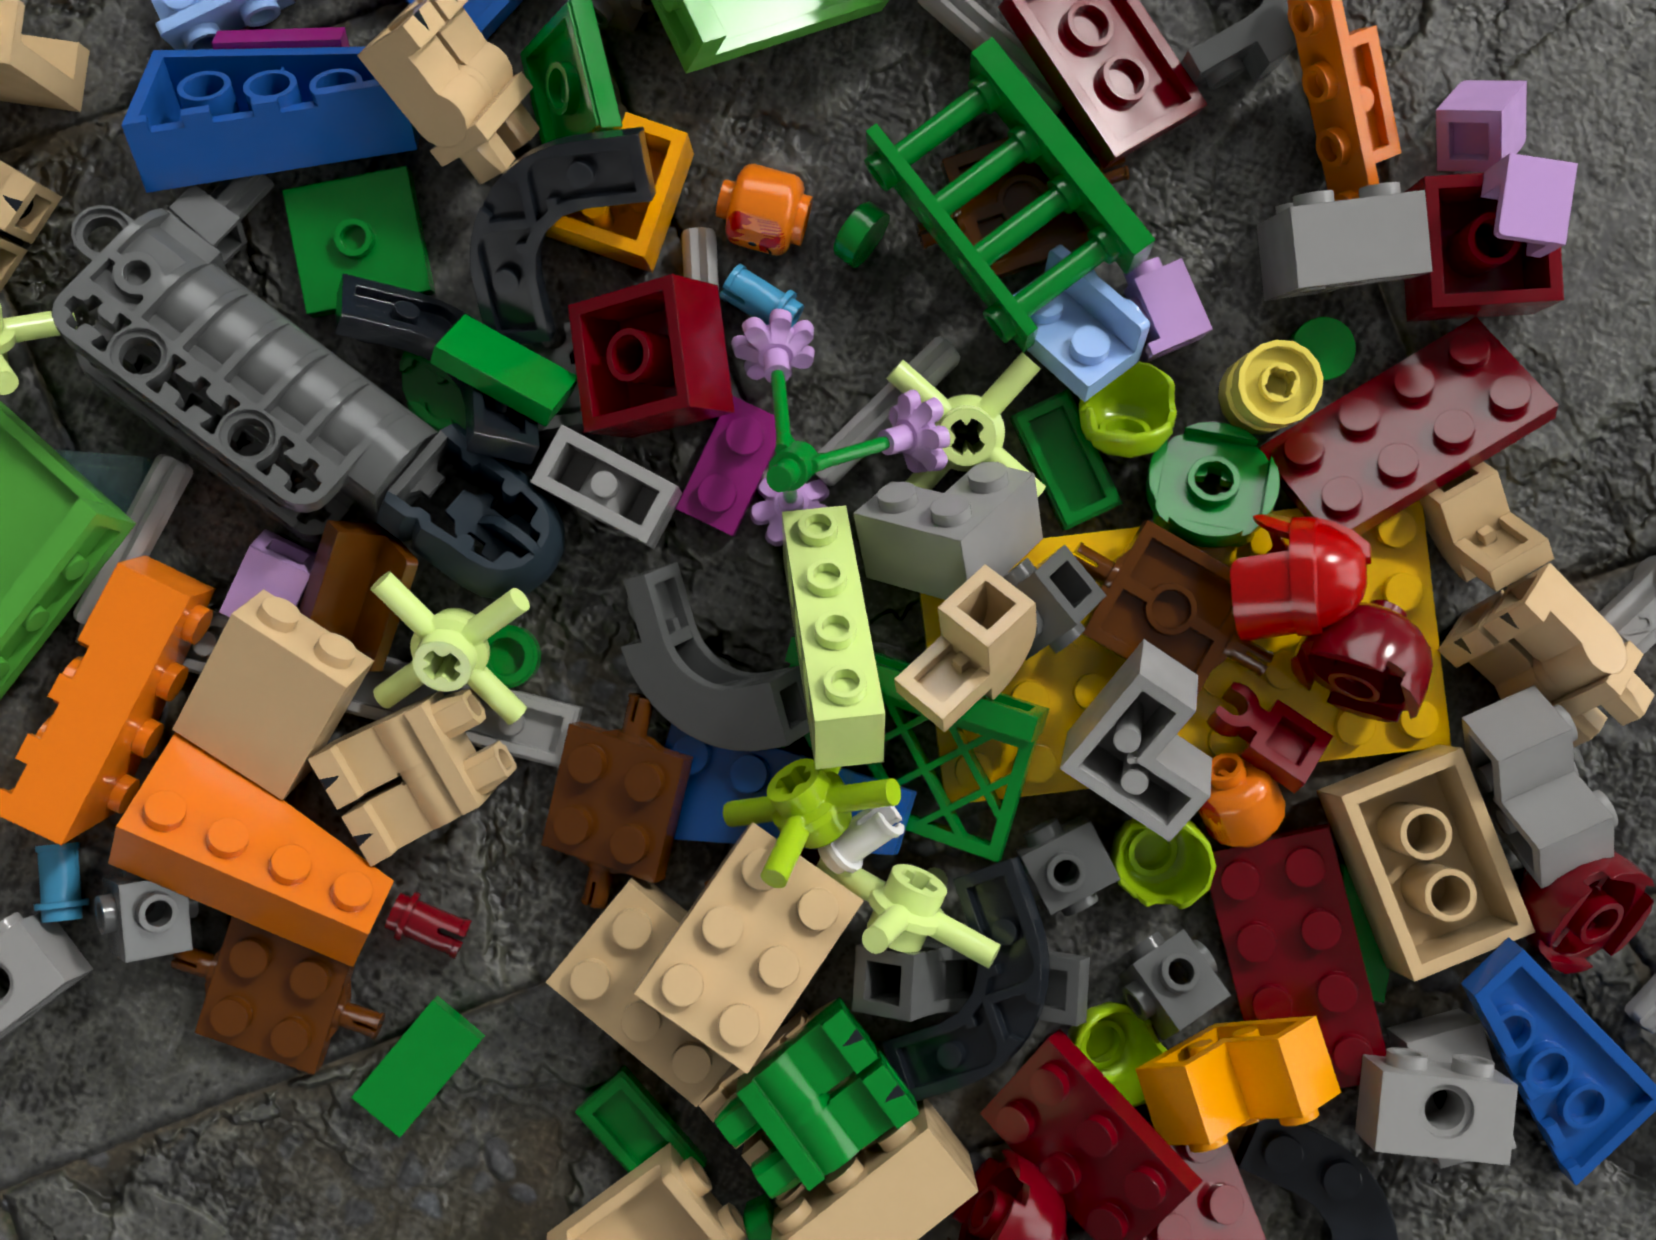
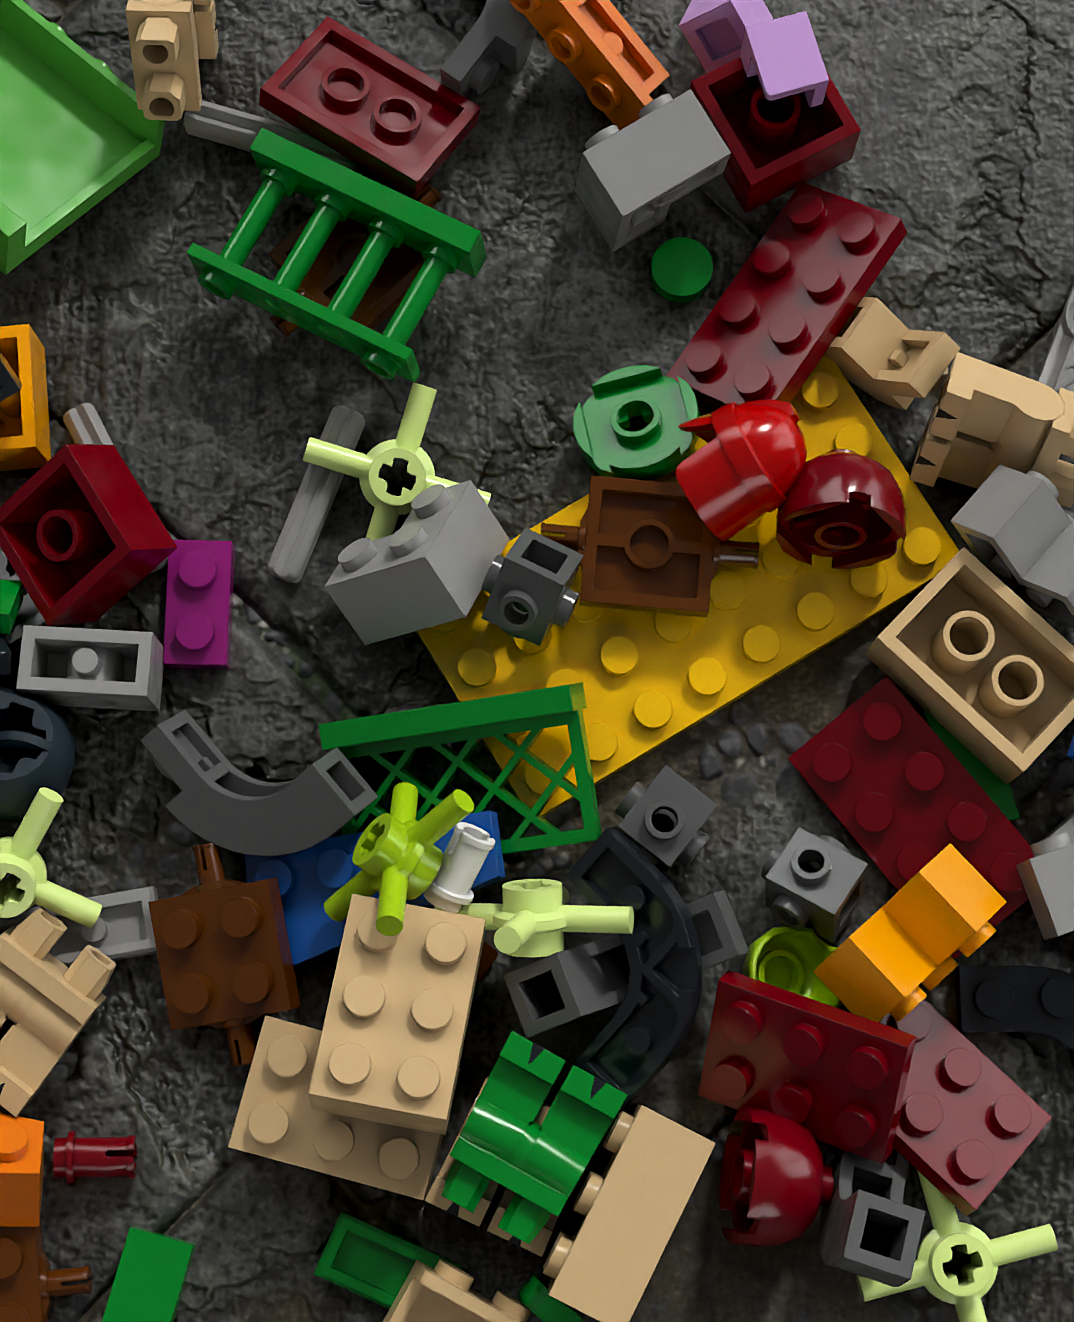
camera: 25 degrees left, 10 degrees down
(514, 655) = (70, 865): green tile -> none
(758, 296) = (162, 445): dark azure pin -> none
(764, 209) = (129, 365): orange head -> none
(772, 354) = (270, 612): lavender plant -> none
(833, 638) = (352, 700): yellowish green brick -> none
(861, 234) = (225, 348): green tile -> none
(981, 647) = (489, 647): tan brick -> none
(1065, 461) = (500, 465): green tile -> none
(1088, 333) = (464, 341): light blue bracket -> none
(1130, 743) = (667, 683): light grey brick -> none
(1131, 413) = (530, 391): lime hair -> none
(1160, 869) = (752, 775): lime hair -> none
(1170, 305) = (524, 294): lavender brick -> none
(1242, 804) = (795, 691): orange head -> none
(1271, 387) = (648, 317): light yellow wheel -> none
(1277, 738) = (800, 618): dark red plate -> none

